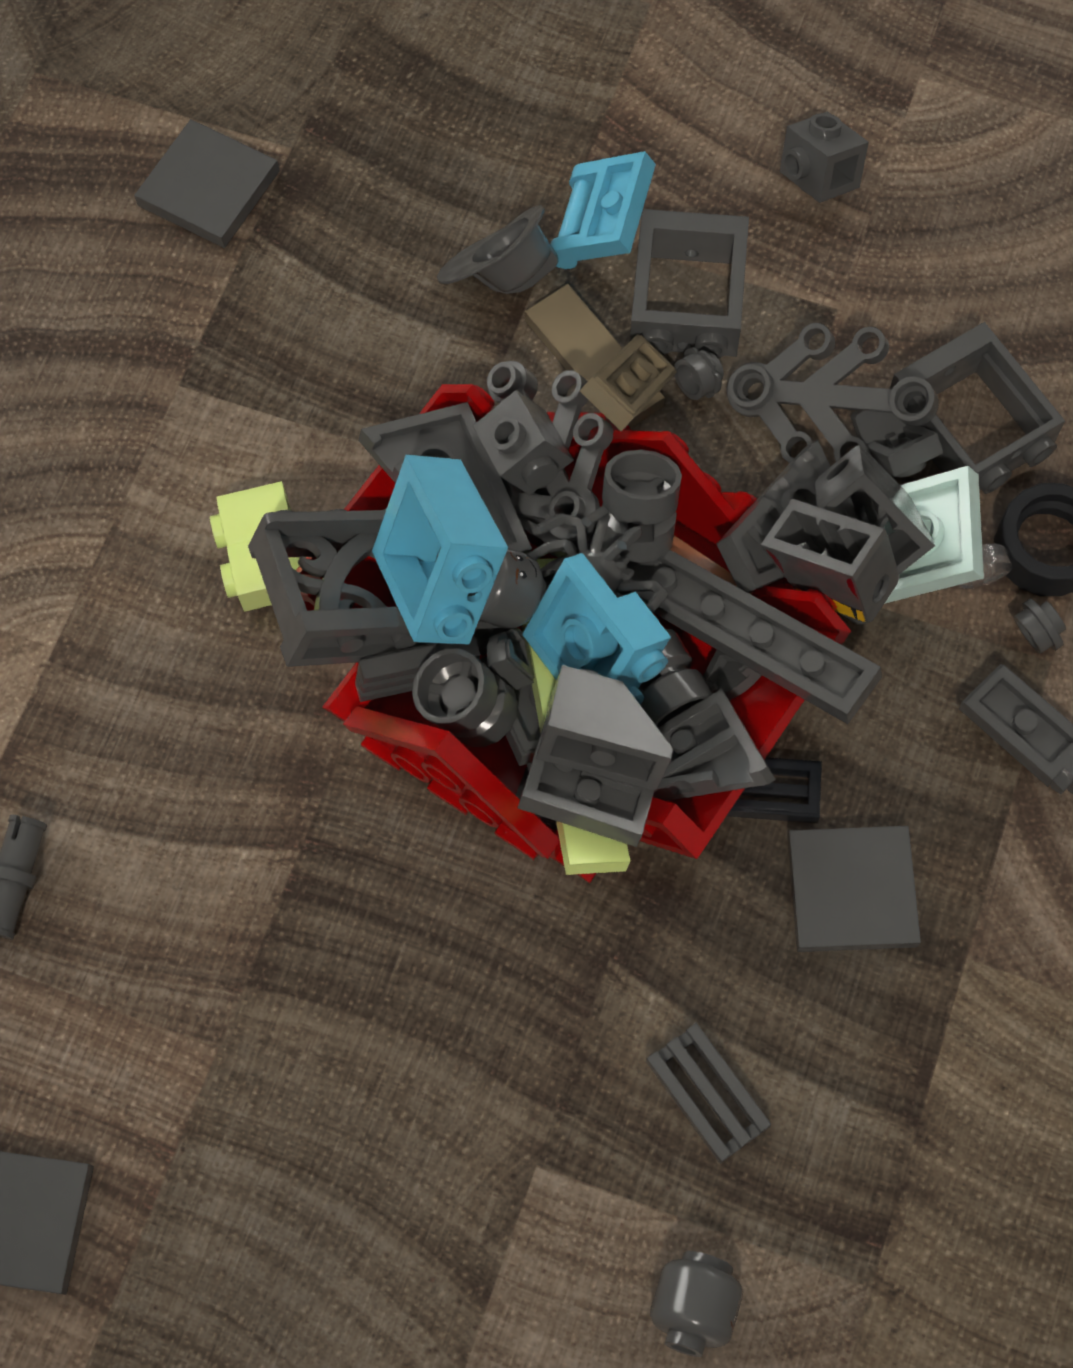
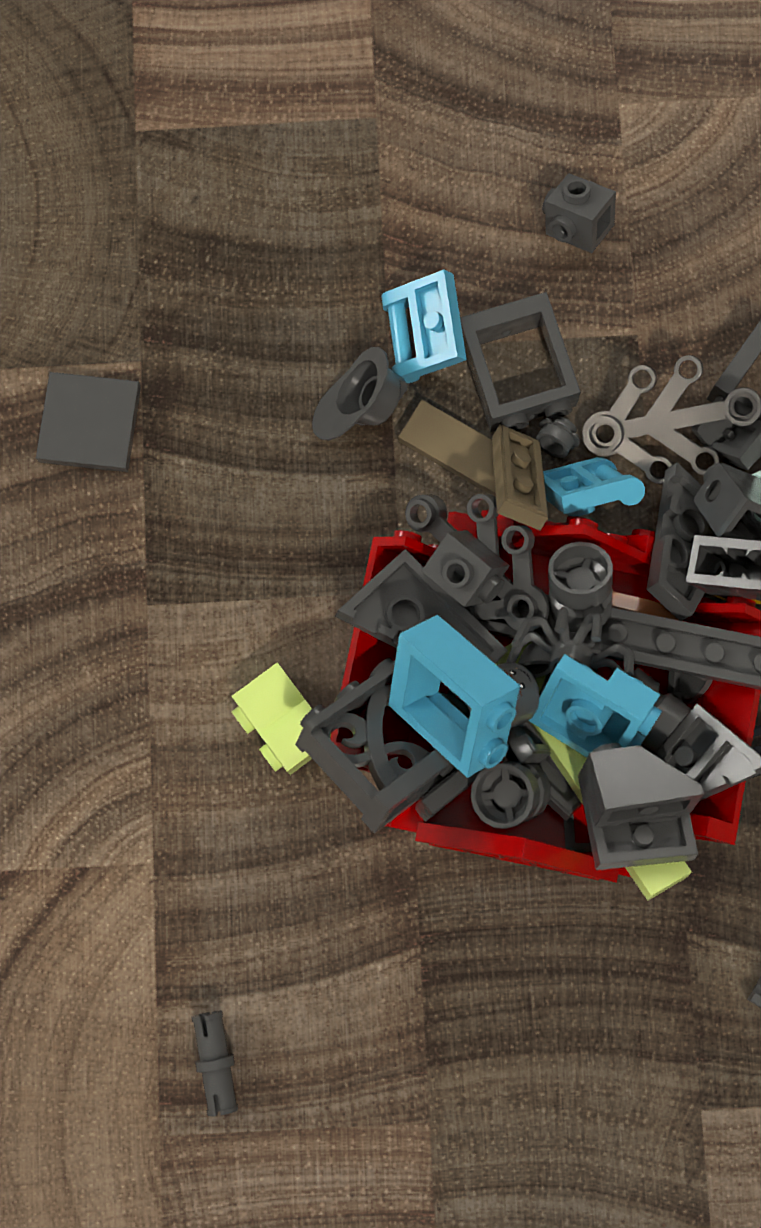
camera: 20 degrees left, 10 degrees up
(693, 421) = (589, 483): none -> medium azure plate

